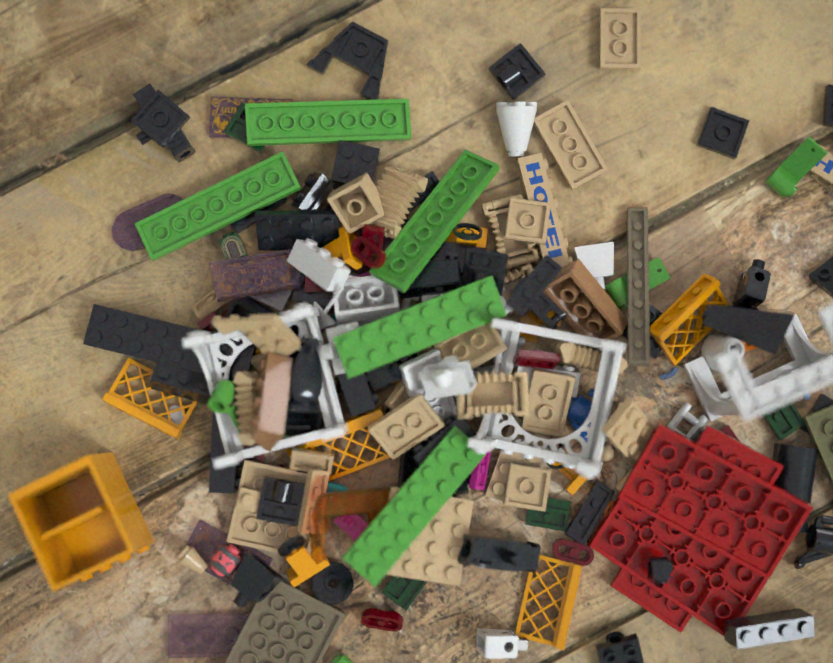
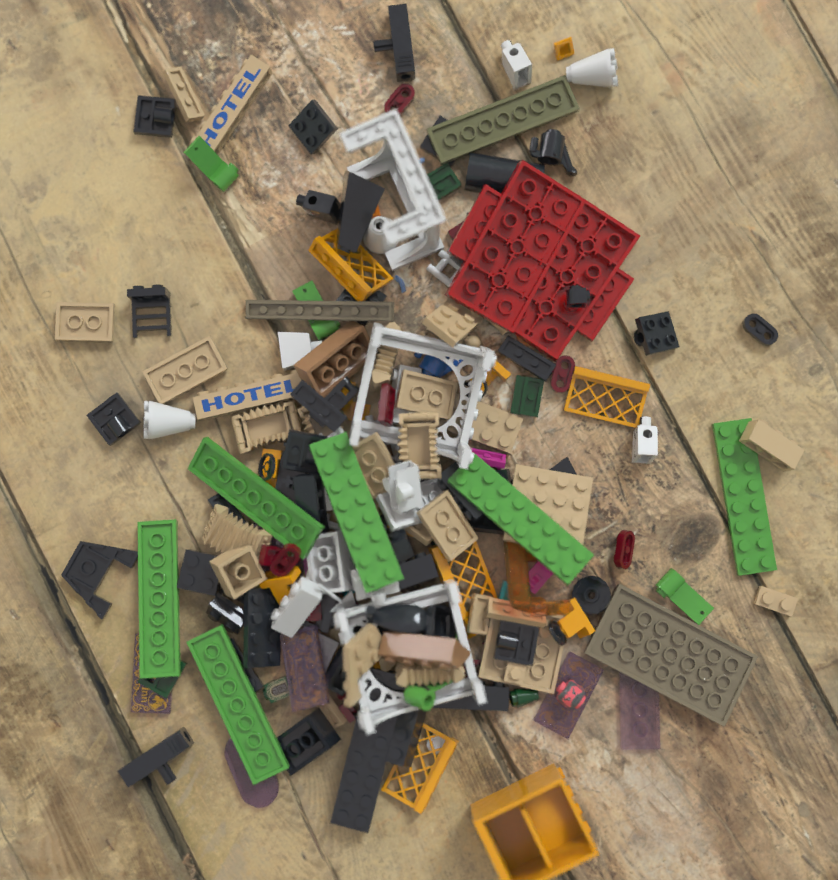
camera: 85 degrees left, 0 degrees up
(160, 118) = (152, 760): black tile -> none
(180, 279) = (307, 740): none -> black slope
(190, 558) = (570, 726): tan cone -> none
(224, 508) = (521, 697): none -> dark green cone
(254, 580) = (588, 667): black torso -> none
(403, 590) = (597, 529): dark green plate -> none
(499, 553) = (564, 441): black piece -> none
(527, 221) = (257, 411): tan tile -> none
(527, 487) = (503, 414): tan tile -> none
(647, 106) = (150, 298): none -> black plate
(723, 133) = (176, 228): black tile -> none
(769, 628) = (629, 201): brick -> none

